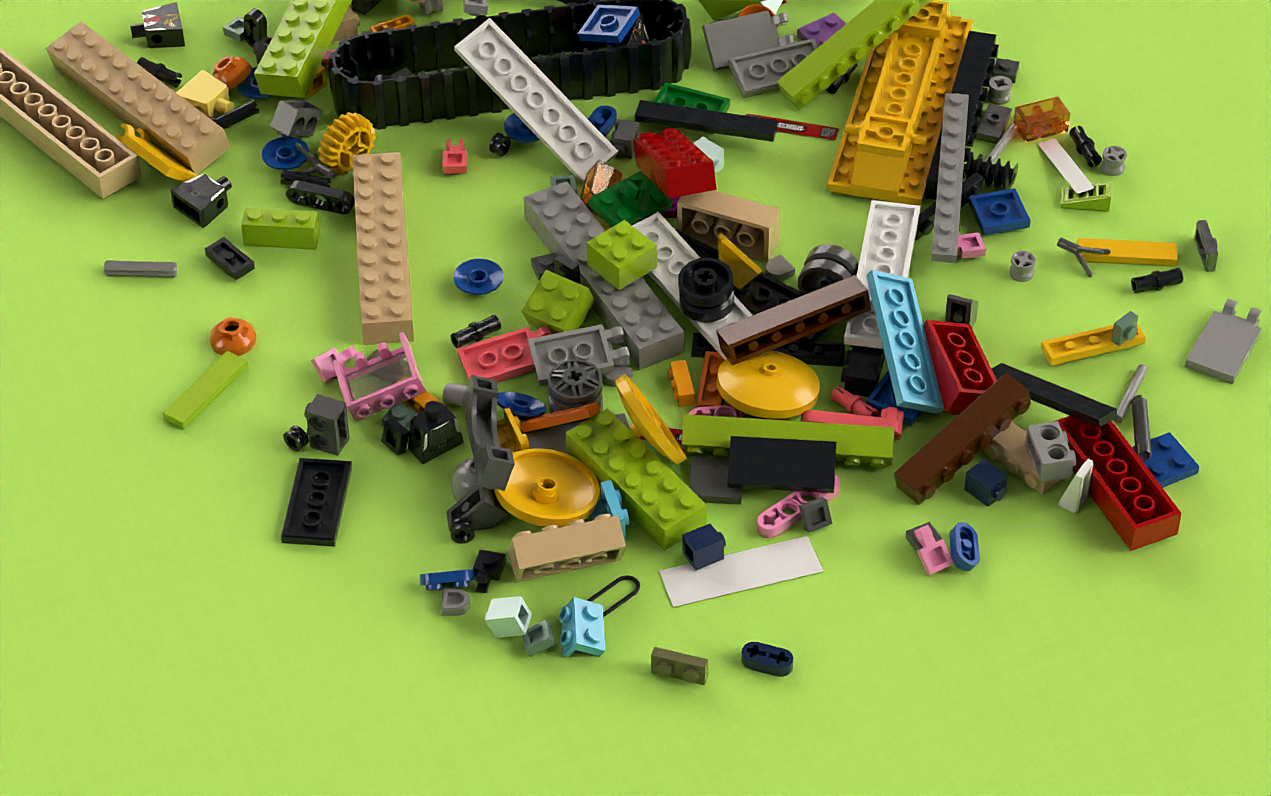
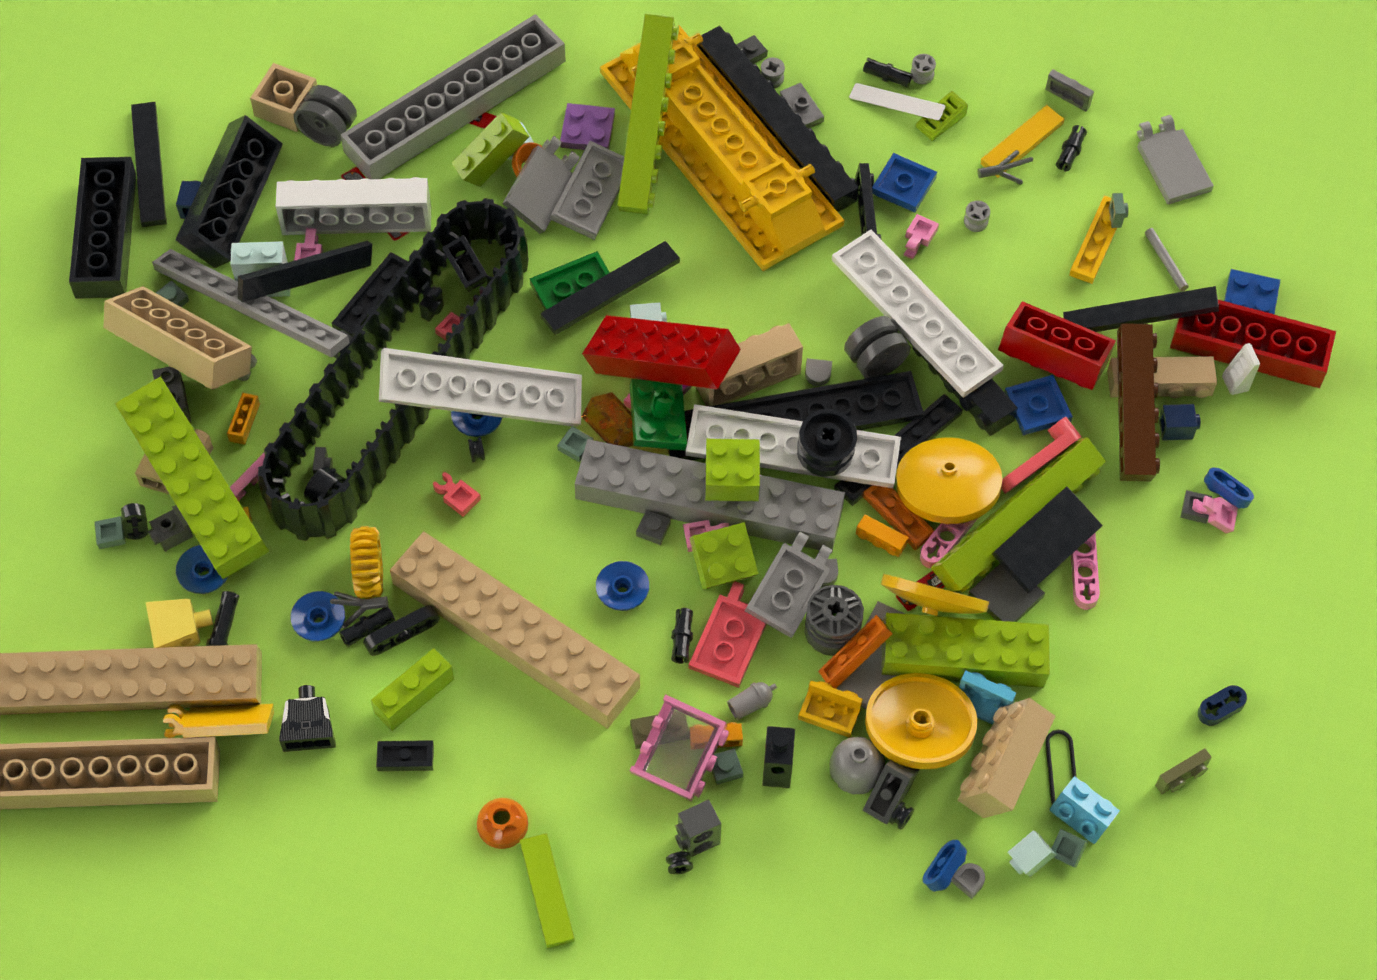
camera: 50 degrees left, 15 degrees up
(140, 268) = (342, 835): light grey axle -> none
(160, 27) = (39, 591): black torso -> none
(161, 72) = (96, 637): black pin -> none
(232, 70) = (176, 584): orange piece -> none
(295, 118) = (293, 577): dark grey brick -> none
(316, 502) = (763, 899): black tile -> none
(324, 364) = (615, 769): bright pink plate -> none
(395, 436) = (750, 785): black plate -> none
(488, 566) = (955, 825): black plate -> none
(491, 461) = (891, 744): dark grey arch -> none
(521, 404) = (802, 667): blue dish -> none
(567, 268) = (692, 519): black plate -> none
(603, 119) = (529, 359): blue plate -> none
(608, 23) = (455, 266): blue plate -> none
(623, 137) = (565, 356): dark grey brick -> none
(703, 546) = (1076, 658): dark blue brick -> none
(740, 264) = (806, 398): yellow slope -> none
(741, 571) = (1112, 653): white sticker -> none
(793, 320) = (920, 412): reddish brown brick -> none
(803, 128) = (664, 233): sticker -> none
(815, 514) = (1110, 557): dark grey plate -> none
(853, 403) = (1017, 440): coral pin -> none
(904, 342) = (1013, 359): medium azure plate -> none
(950, 178) = (852, 184): light grey plate -> none
(961, 310) = (995, 296): dark grey slope -> none
(991, 172) = (860, 151): black piece -> none
(1003, 142) = (831, 125): light grey bar -> none
(1042, 119) = (834, 74): clear orange brick -> none
(1050, 451) = (1202, 364): light grey brick -> none
(1141, 427) = (1219, 289): dark grey piece -> none

